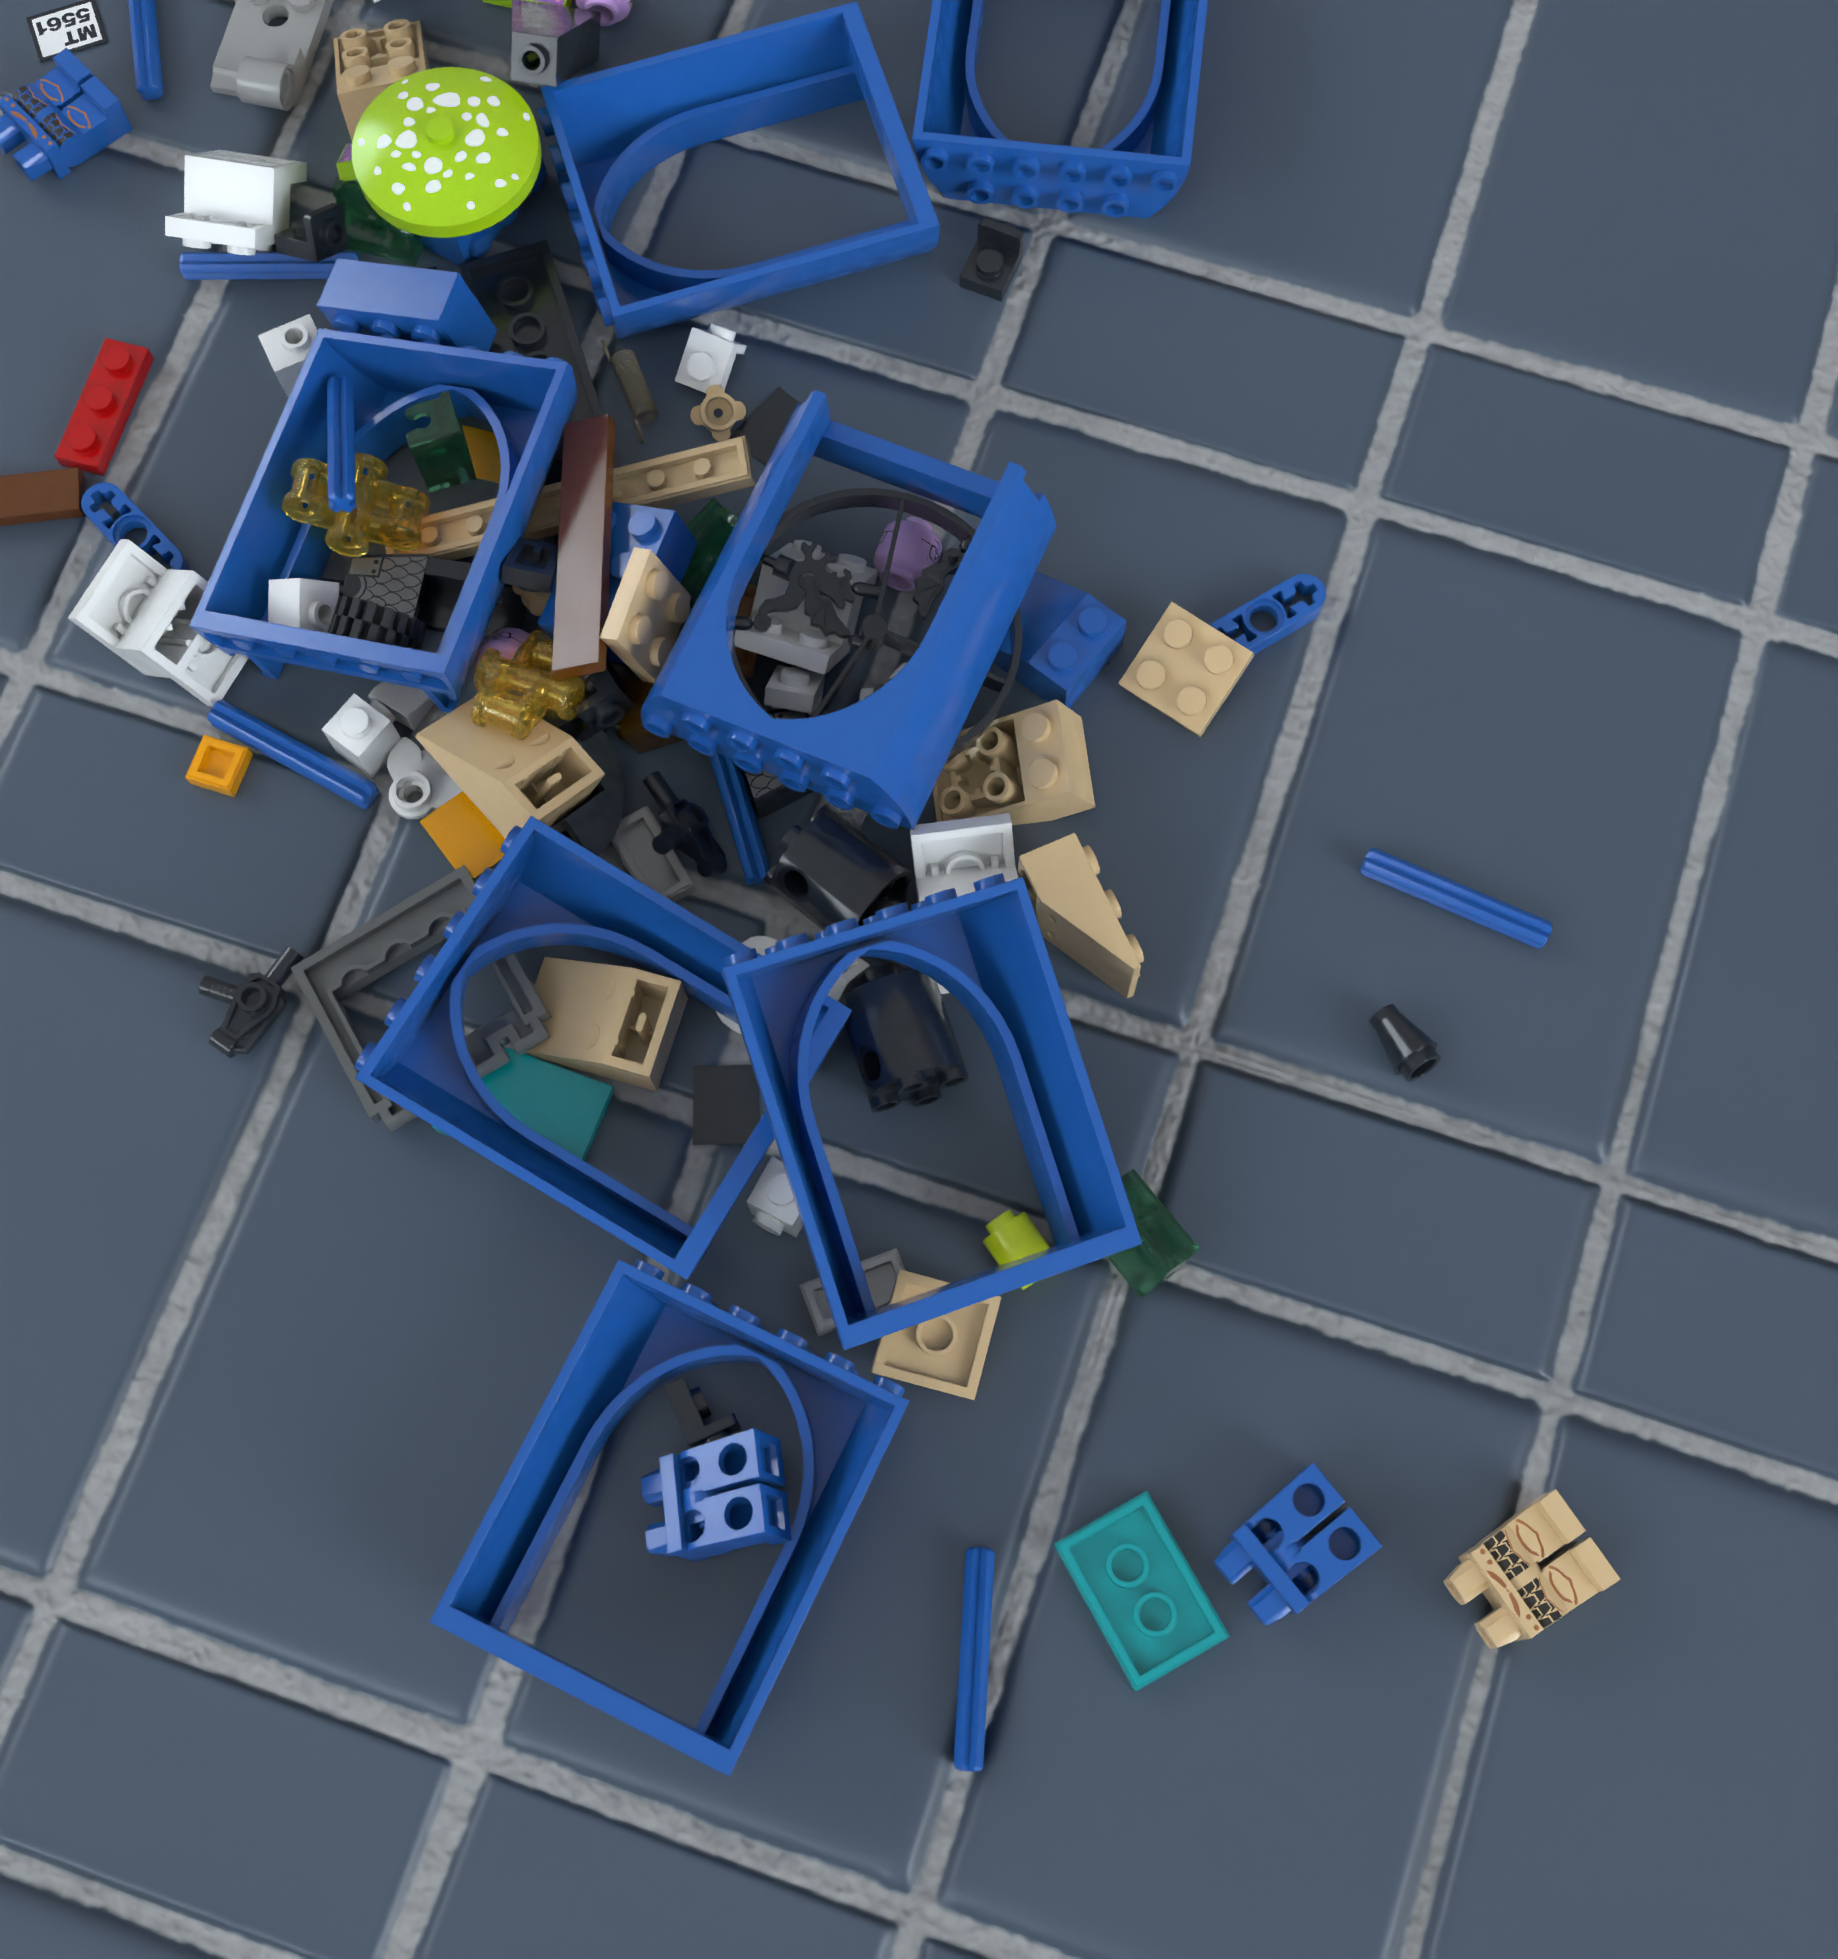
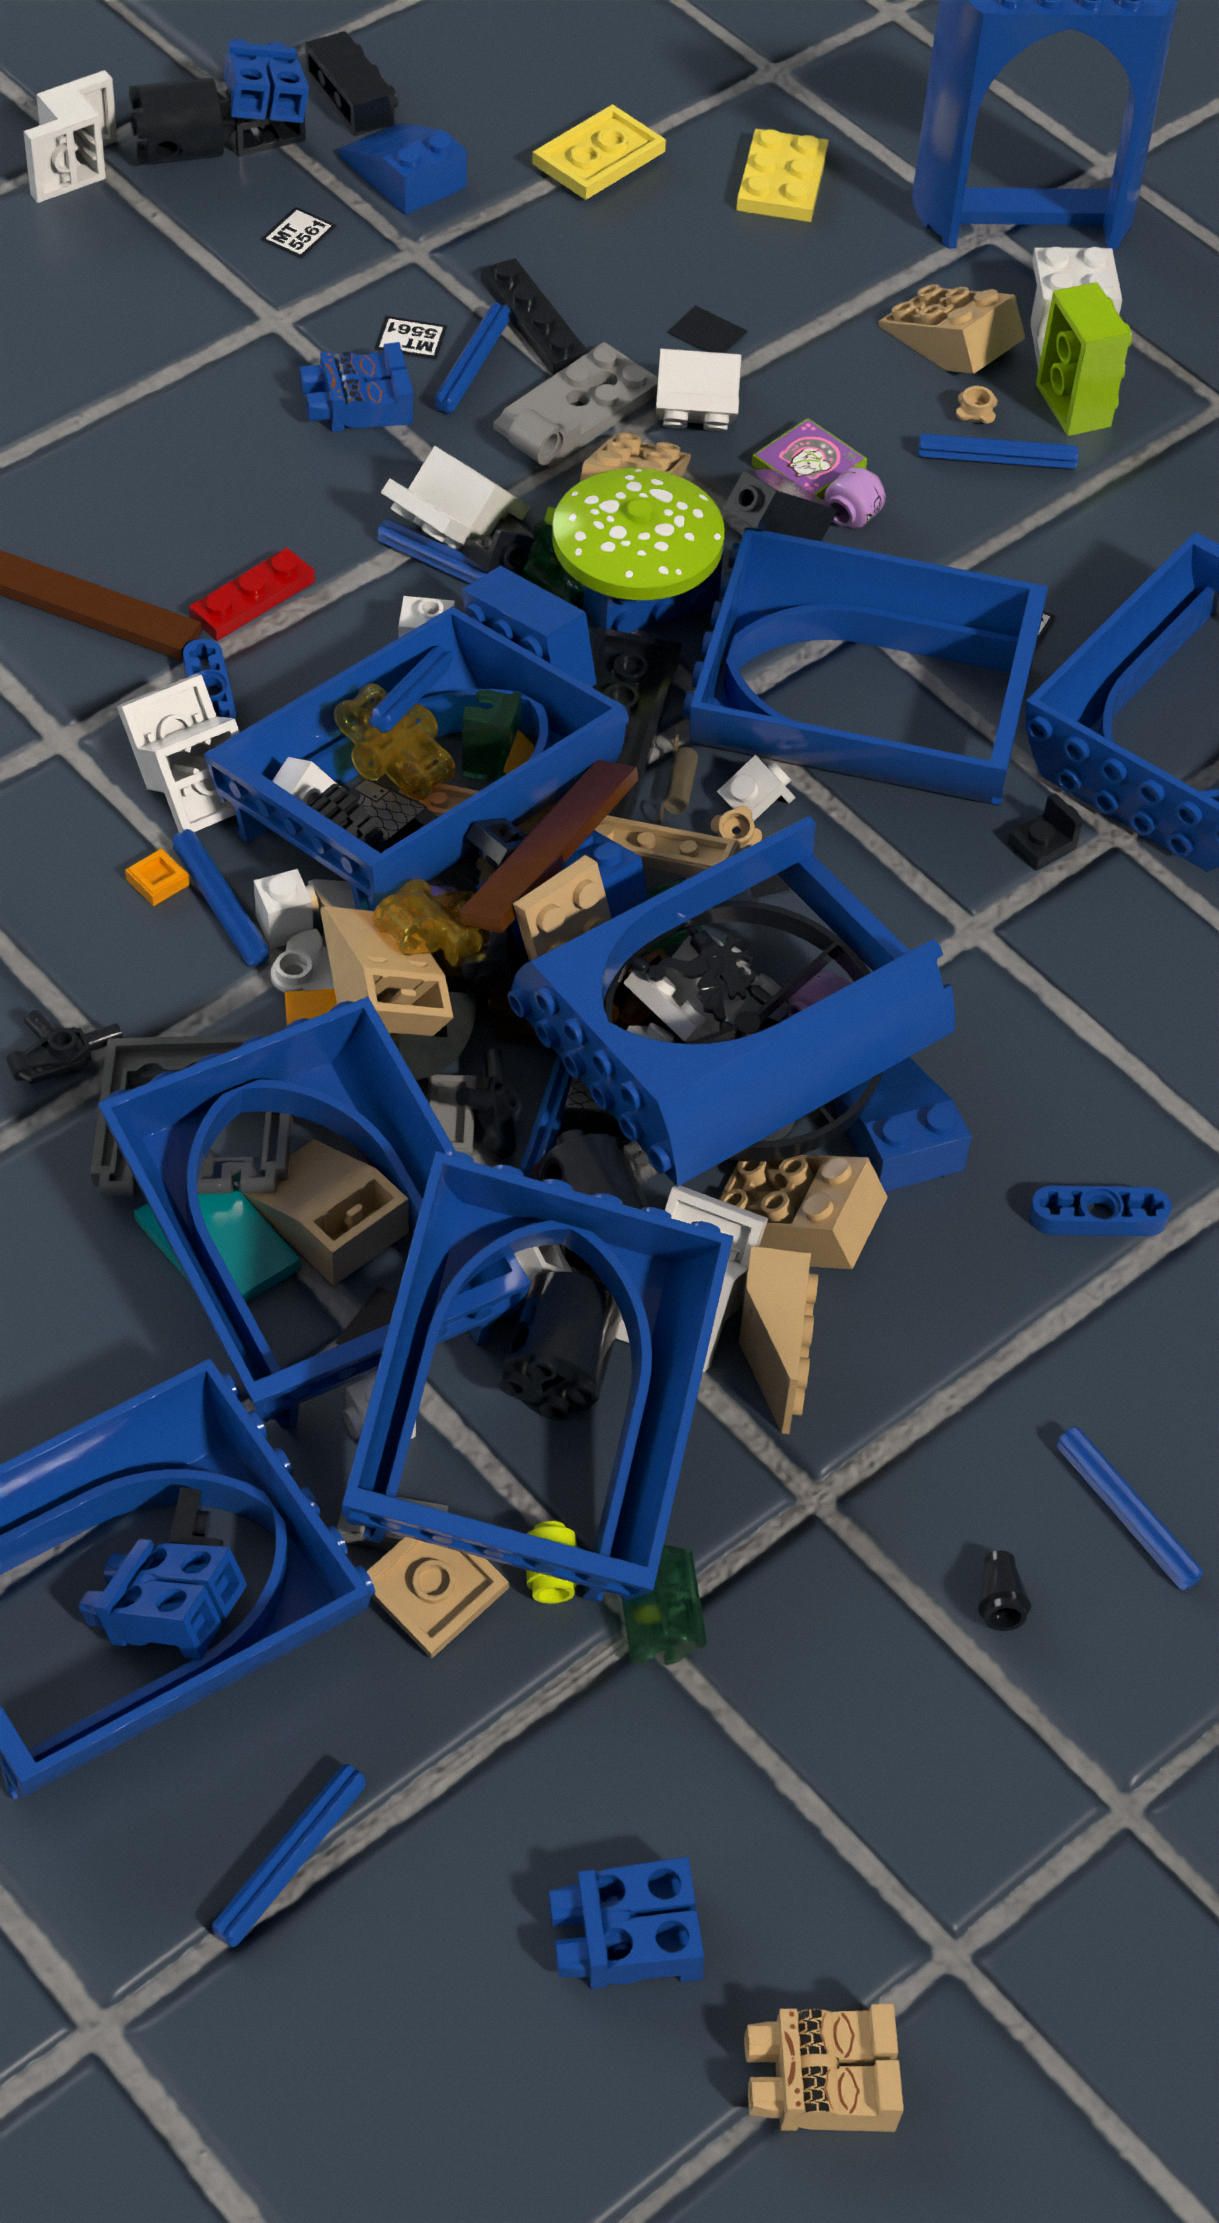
camera: 25 degrees right, 20 degrees down
(1141, 1591) = (470, 1889): teal tile -> none
(1186, 669) = (1004, 1208): tan plate -> none

